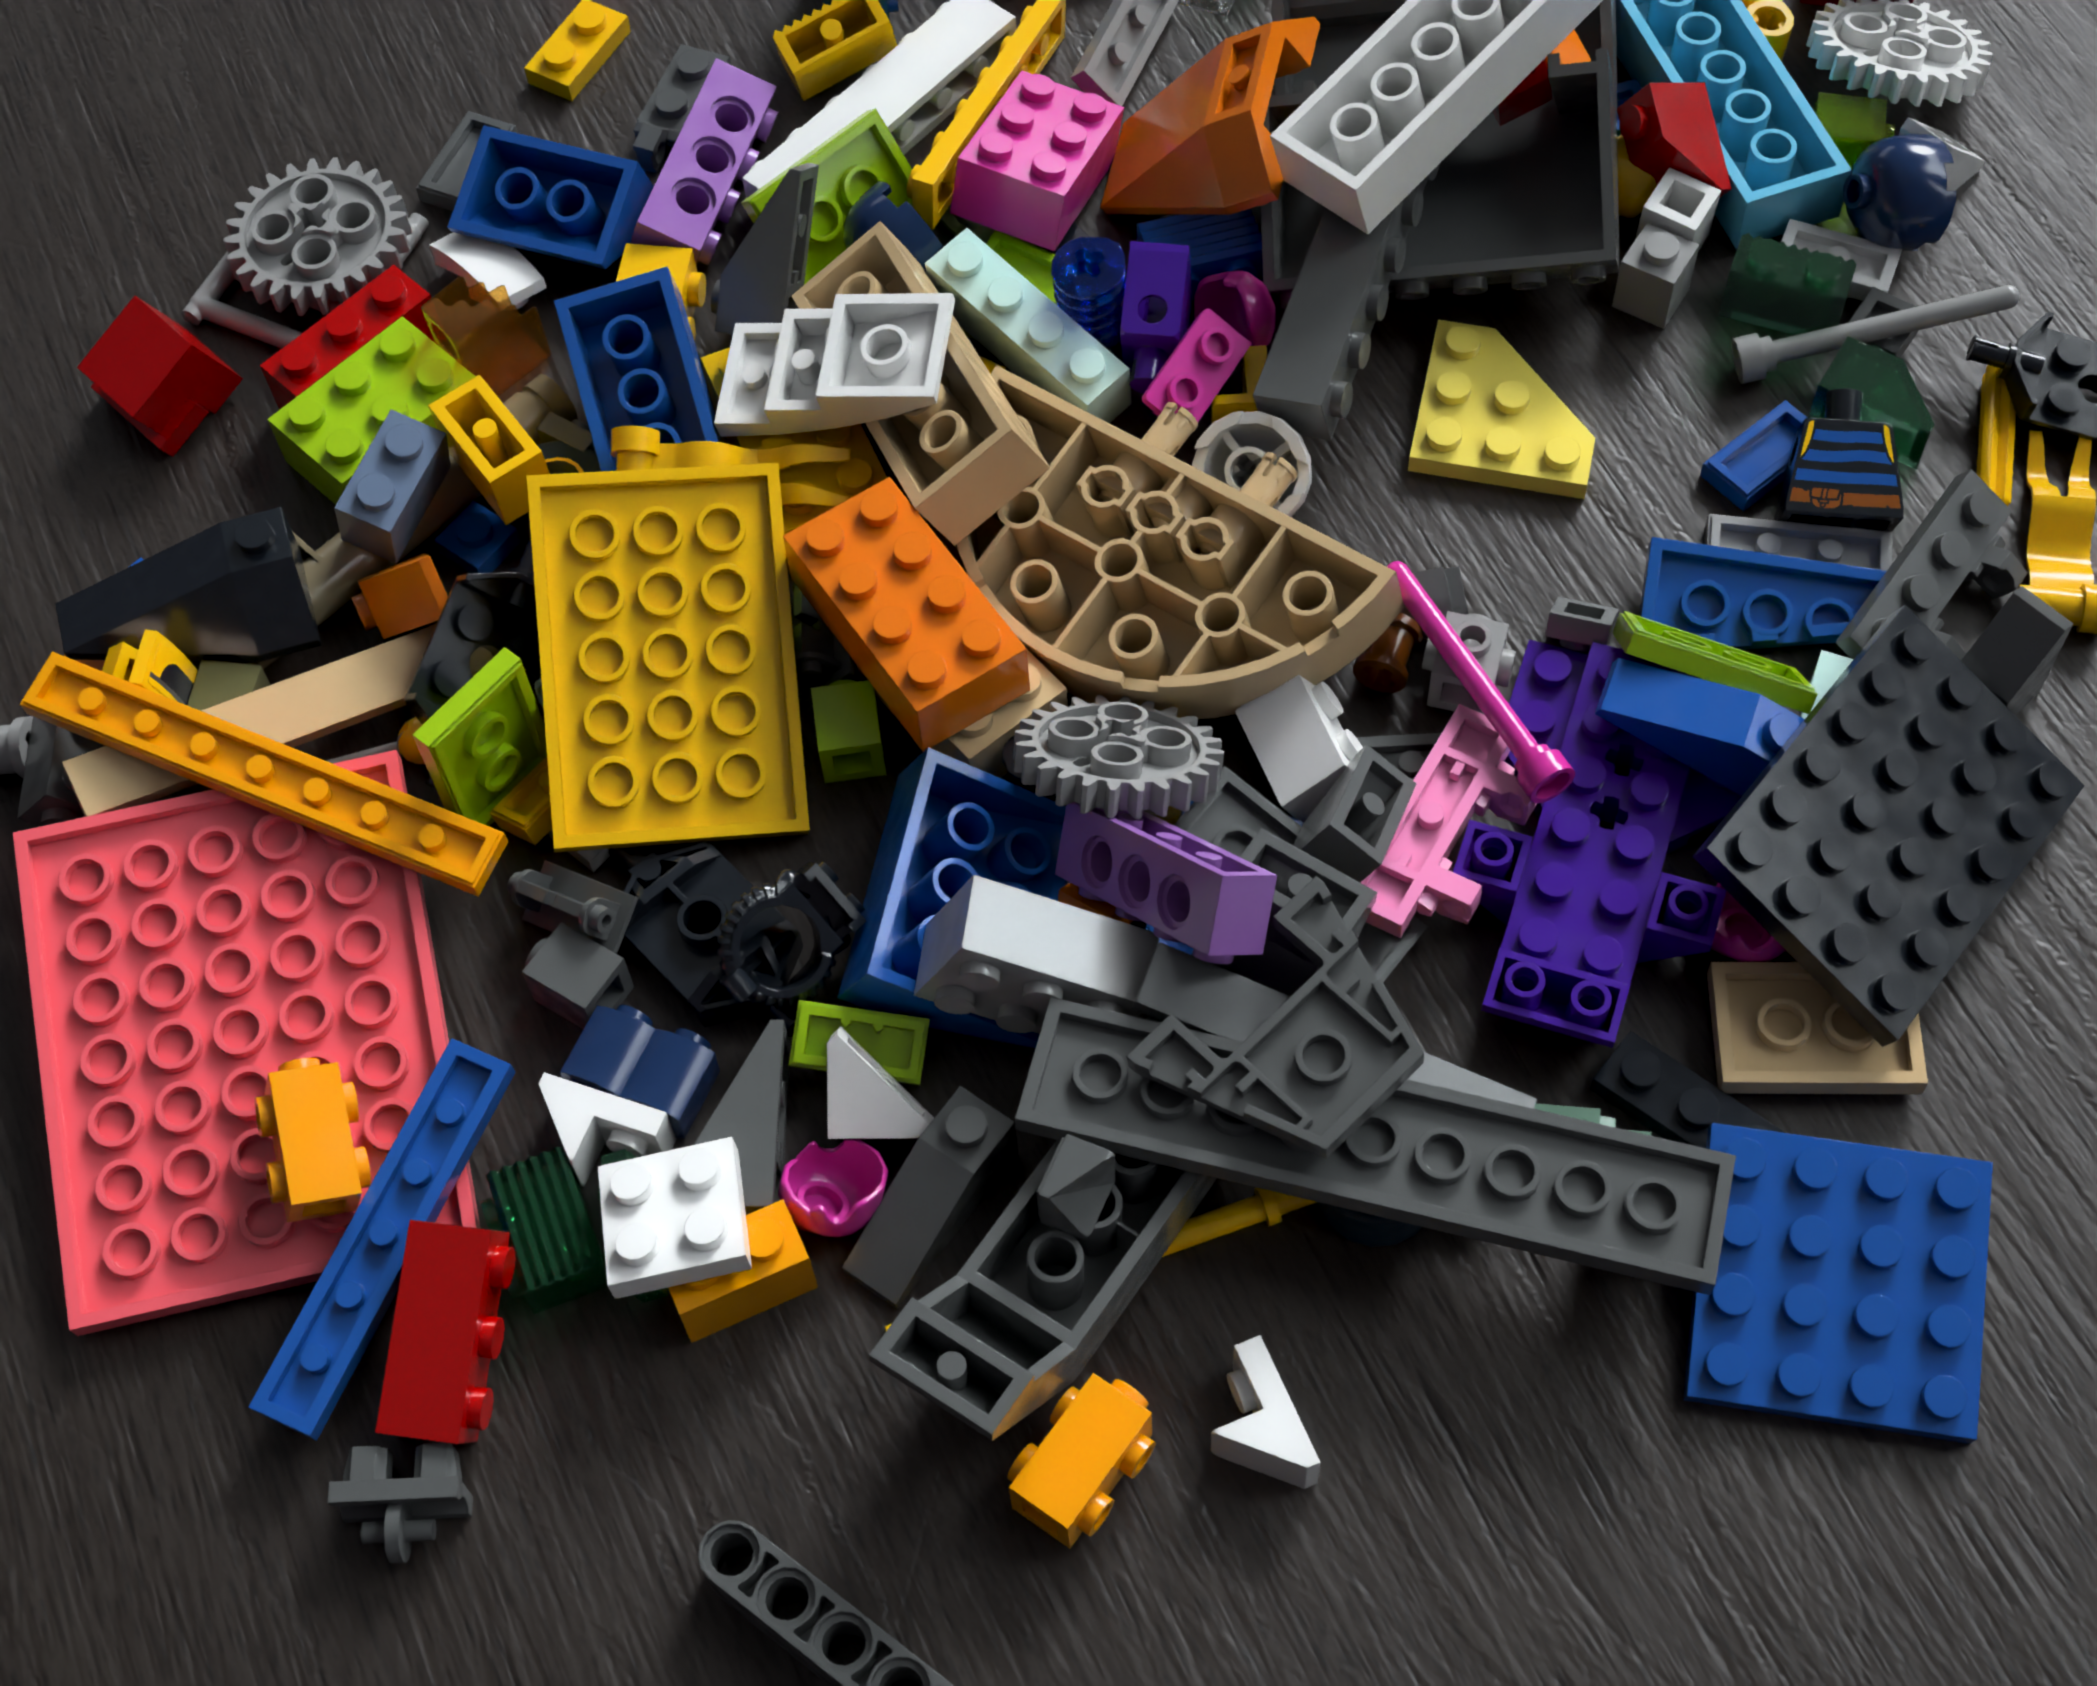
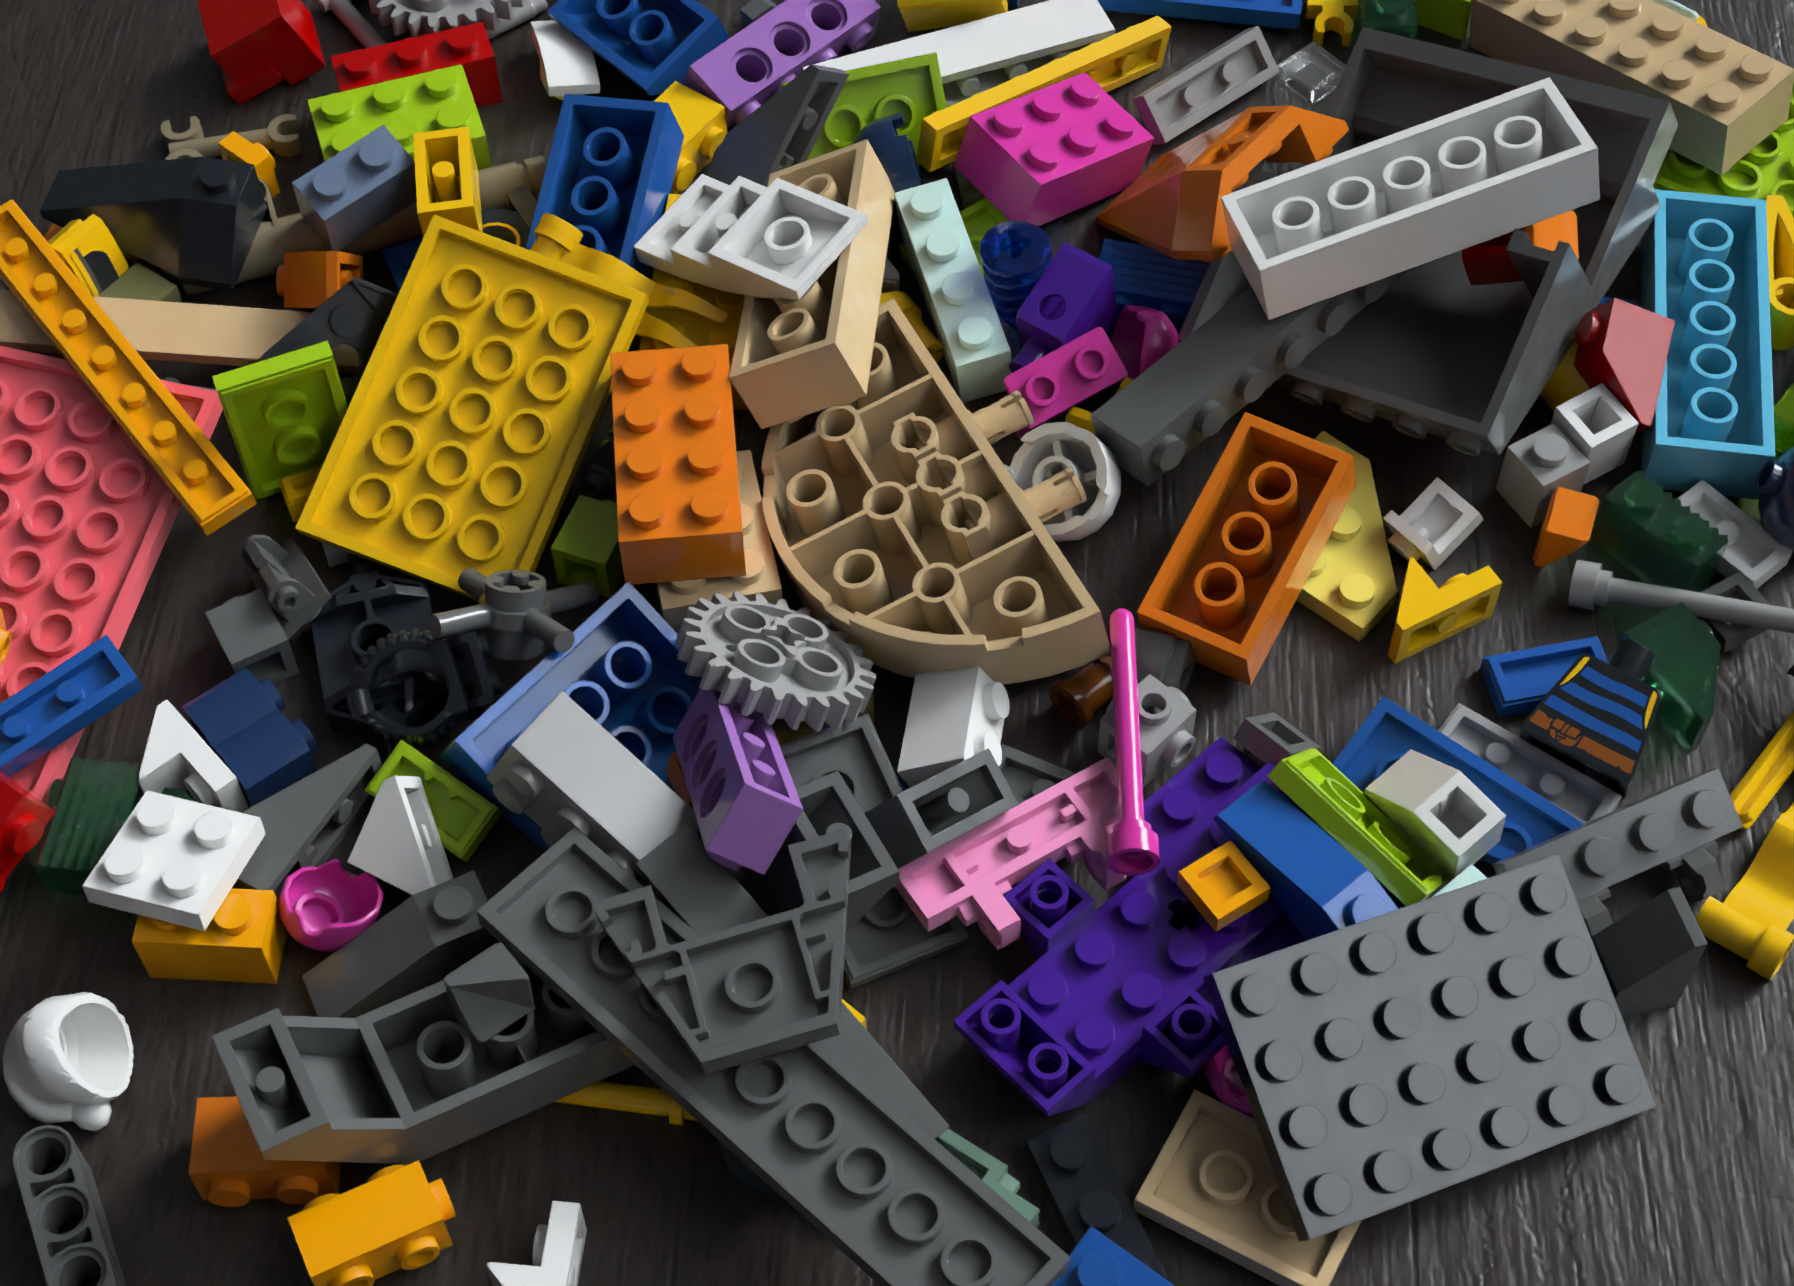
camera: 25 degrees right, 5 degrees down
(162, 526) = (279, 135): none -> dark tan bar
(230, 503) = (239, 149): none -> light orange plate
(487, 333) = (515, 105): clear orange piece -> none
(682, 1458) = (69, 1060): none -> white piece
(833, 827) = (515, 612): none -> dark grey bar
(916, 1449) = (231, 1168): none -> orange brick
(1461, 452) = (1249, 546): none -> orange brick
(1588, 363) = (1432, 525): none -> white bracket
(1633, 443) = (1434, 614): none -> yellow slope
(1638, 769) = (1223, 885): none -> light orange plate
(1702, 313) = (1565, 525): none -> orange slope
(1767, 615) = (1438, 811): none -> white slope

